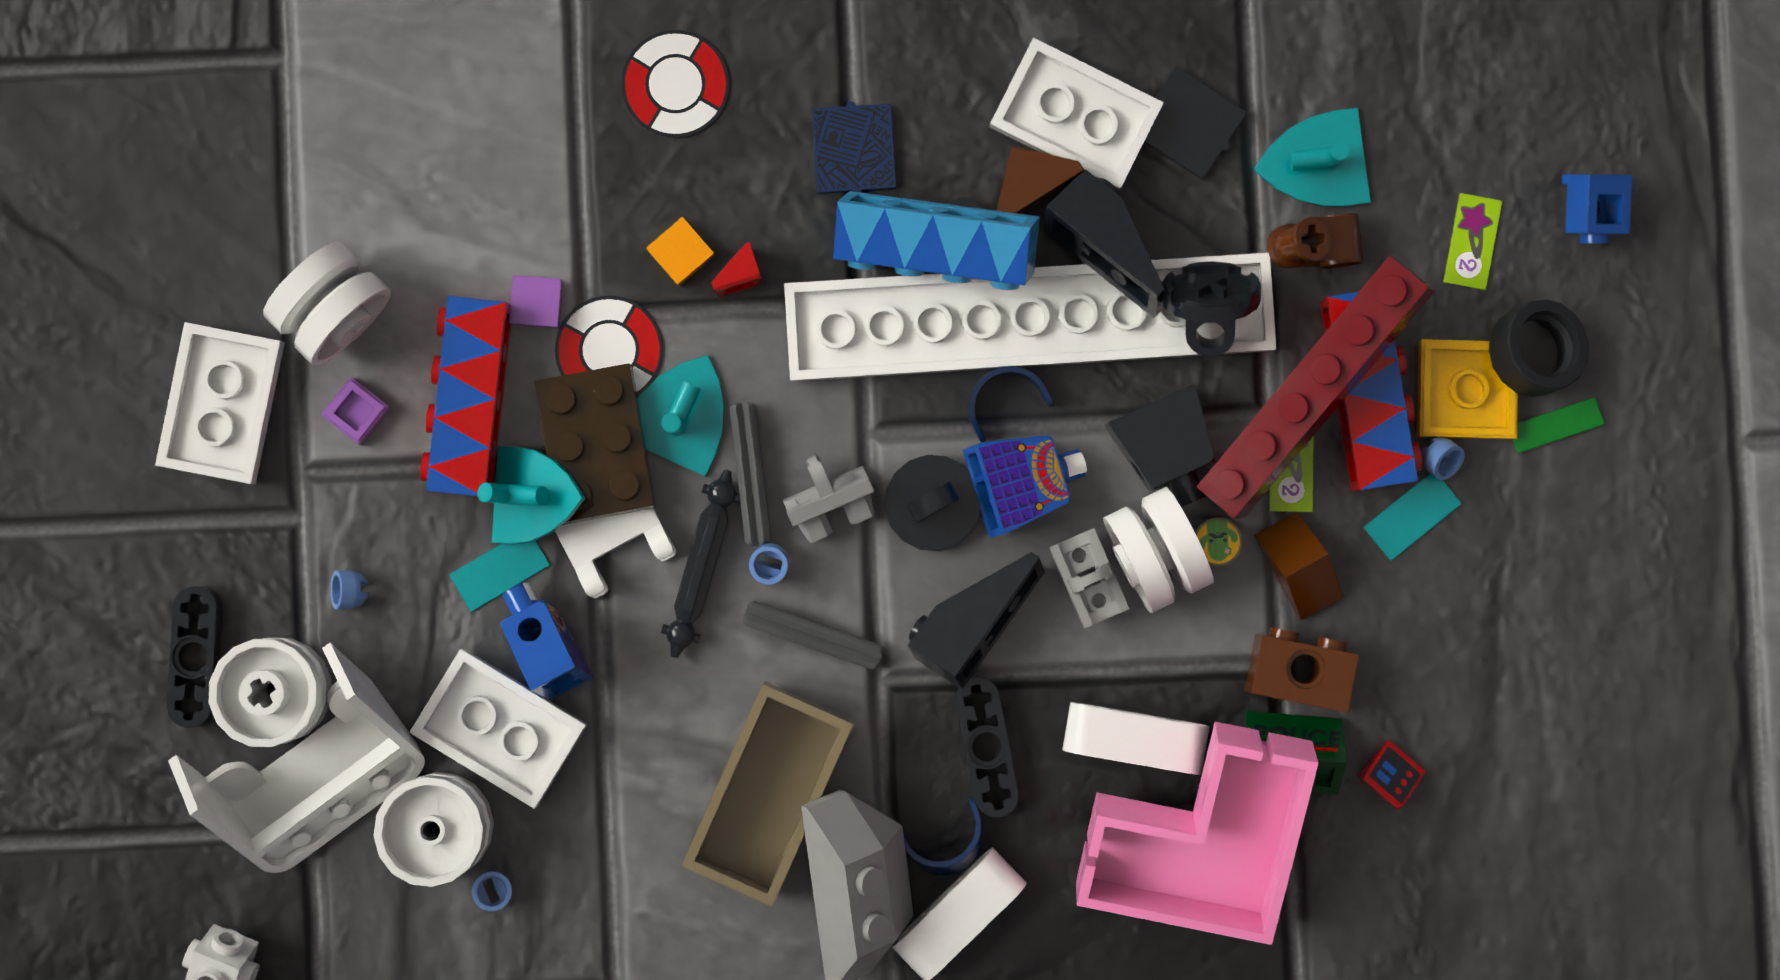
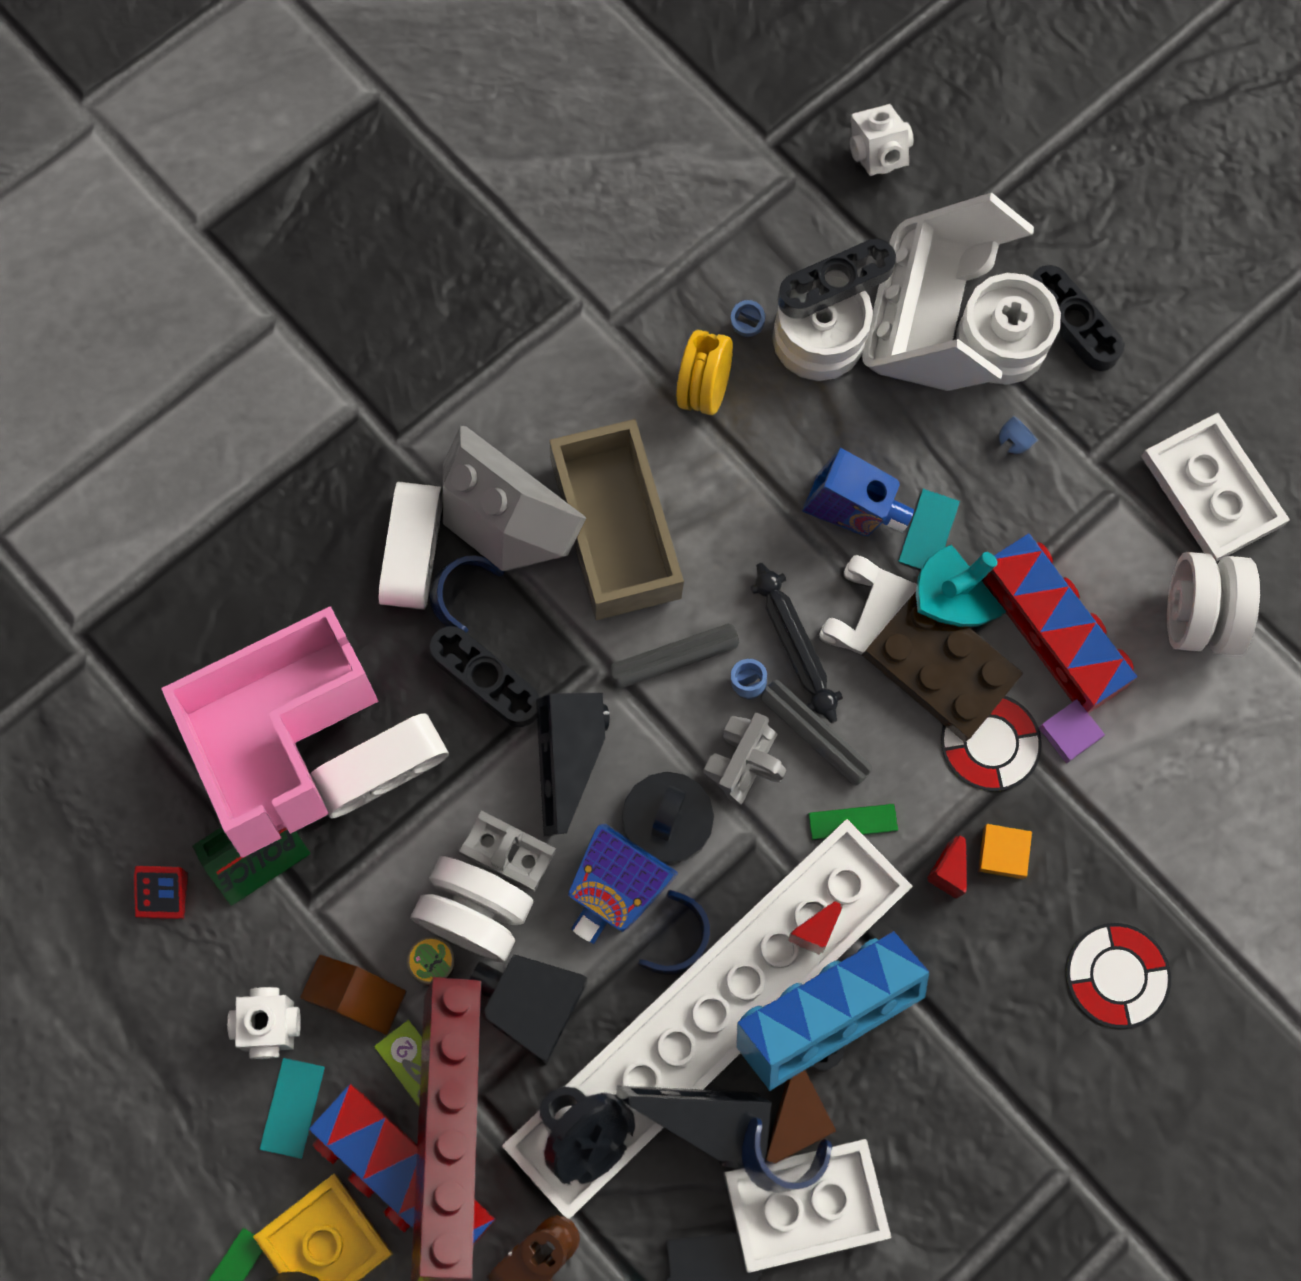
camera: 135 degrees right, 15 degrees down
(356, 411) = (1121, 557): medium lavender tile -> none
(360, 831) = (827, 295): none -> black beam
(498, 728) = (849, 414): white plate -> none
(578, 866) = (704, 372): none -> yellow head
(684, 414) = (898, 738): teal shield -> none
(776, 375) = (865, 819): none -> green window
(853, 148) = (948, 1036): dark blue piece -> none
(894, 307) = (817, 930): none -> red slope
(1066, 128) = (761, 1174): none -> dark blue helmet
(1326, 688) = (261, 913): reddish brown brick -> none
(1372, 590) = (277, 1035): none -> white brick
(1442, 458) = (302, 1170): medium blue hinge -> none

